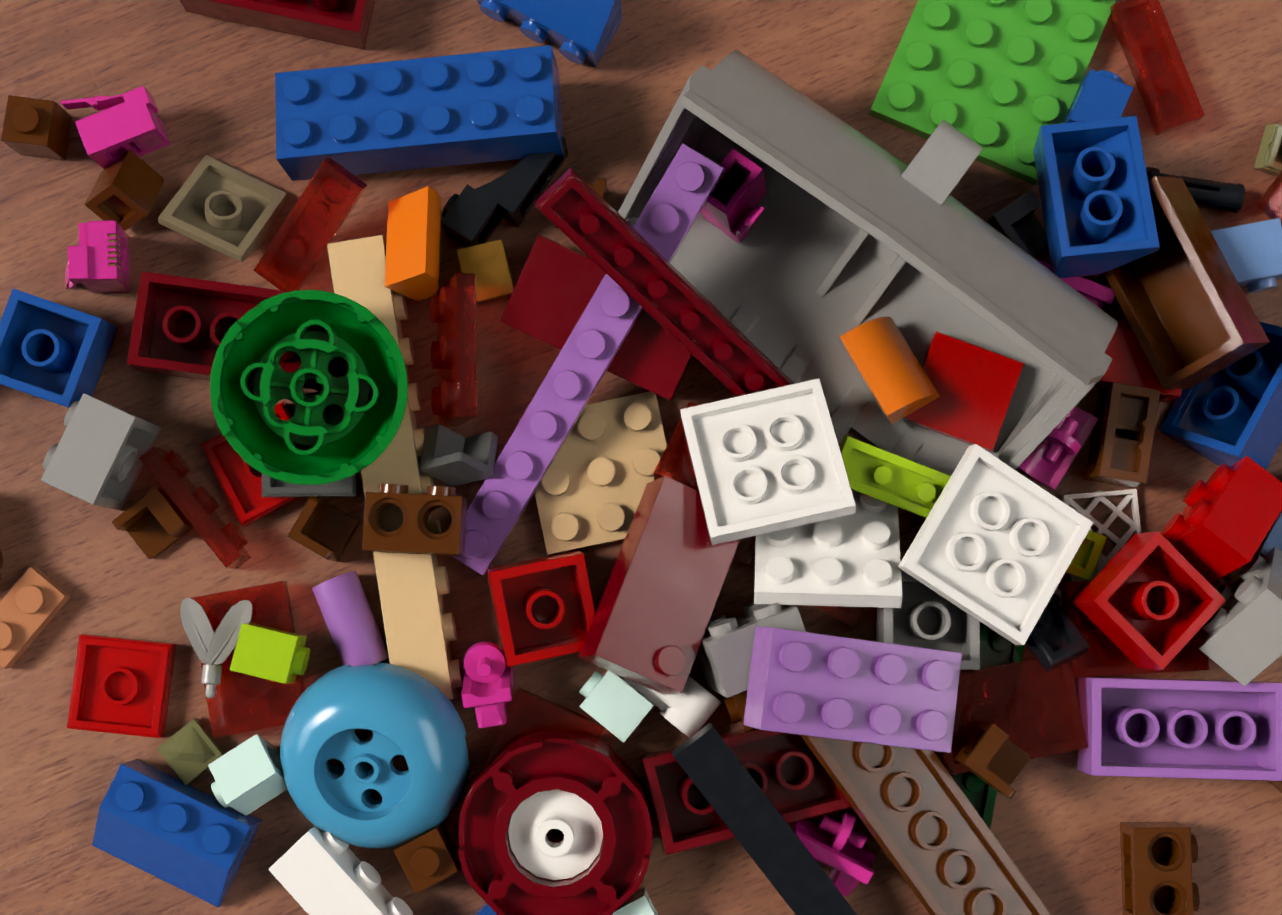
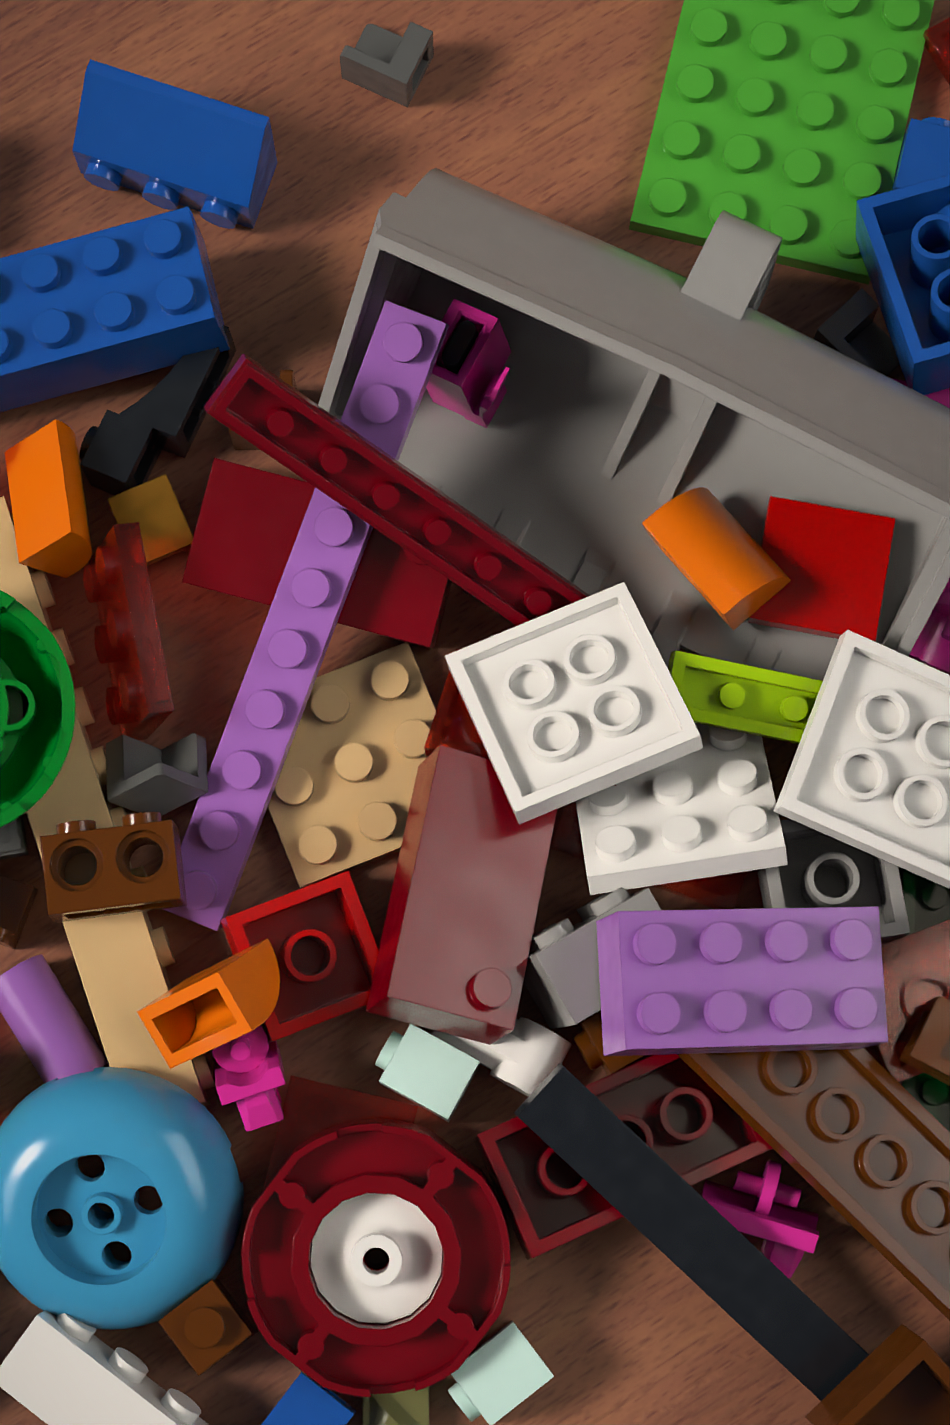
camera: 10 degrees left, 5 degrees down
(471, 634) = (214, 1005): none -> orange brick

